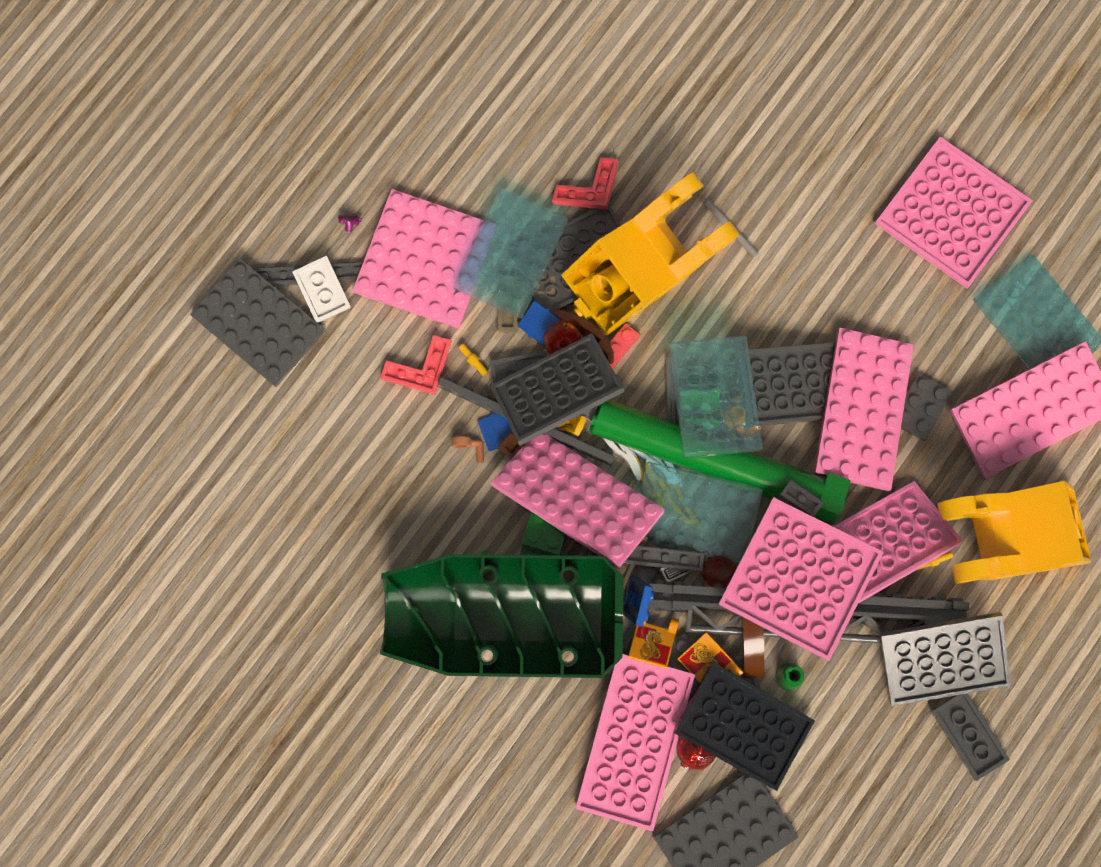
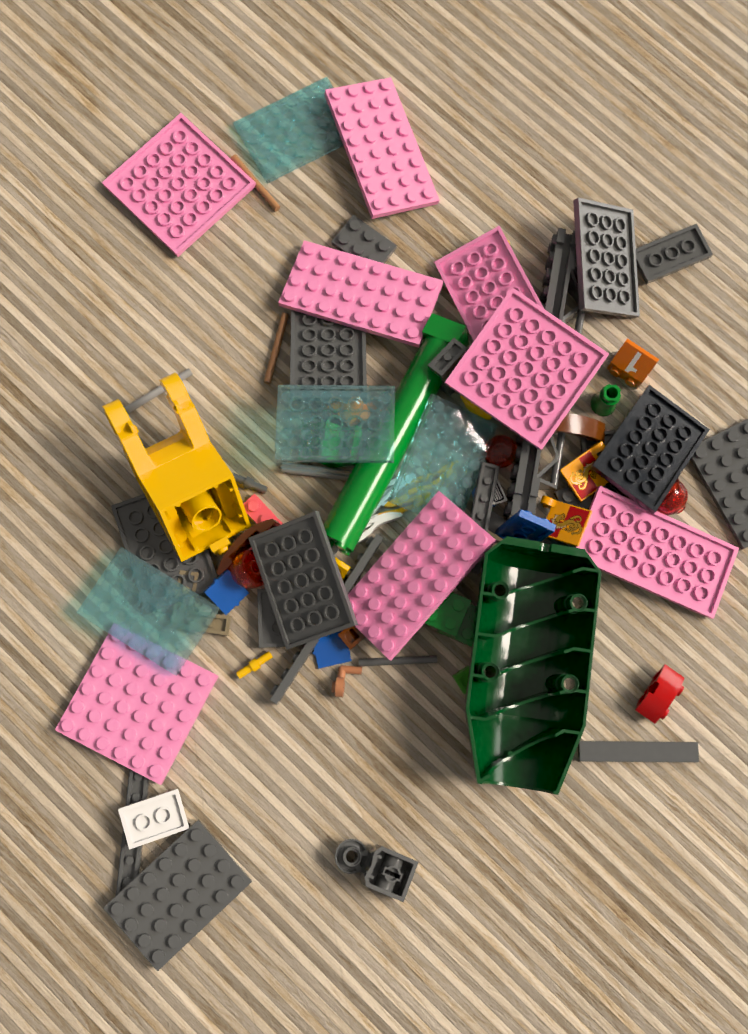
camera: 90 degrees left, 0 degrees up
(297, 501) = (378, 868): none -> dark grey brick
(349, 221) = (81, 780): magenta plant -> none
(425, 379) = (269, 719): coral plate -> none
(433, 743) = (637, 751): none -> dark grey tile
(491, 757) = (660, 694): none -> red brick
(494, 496) = (398, 660): none -> dark grey bar
(595, 197) = (103, 518): coral plate -> none
(650, 328) = (250, 483): none -> dark grey bar
(793, 334) = (276, 348): none -> medium nougat bar
(833, 699) = (632, 364): none -> orange slope
(964, 294) = (259, 187): none -> medium nougat bar
(1021, 531) = (501, 170): yellow piece -> none

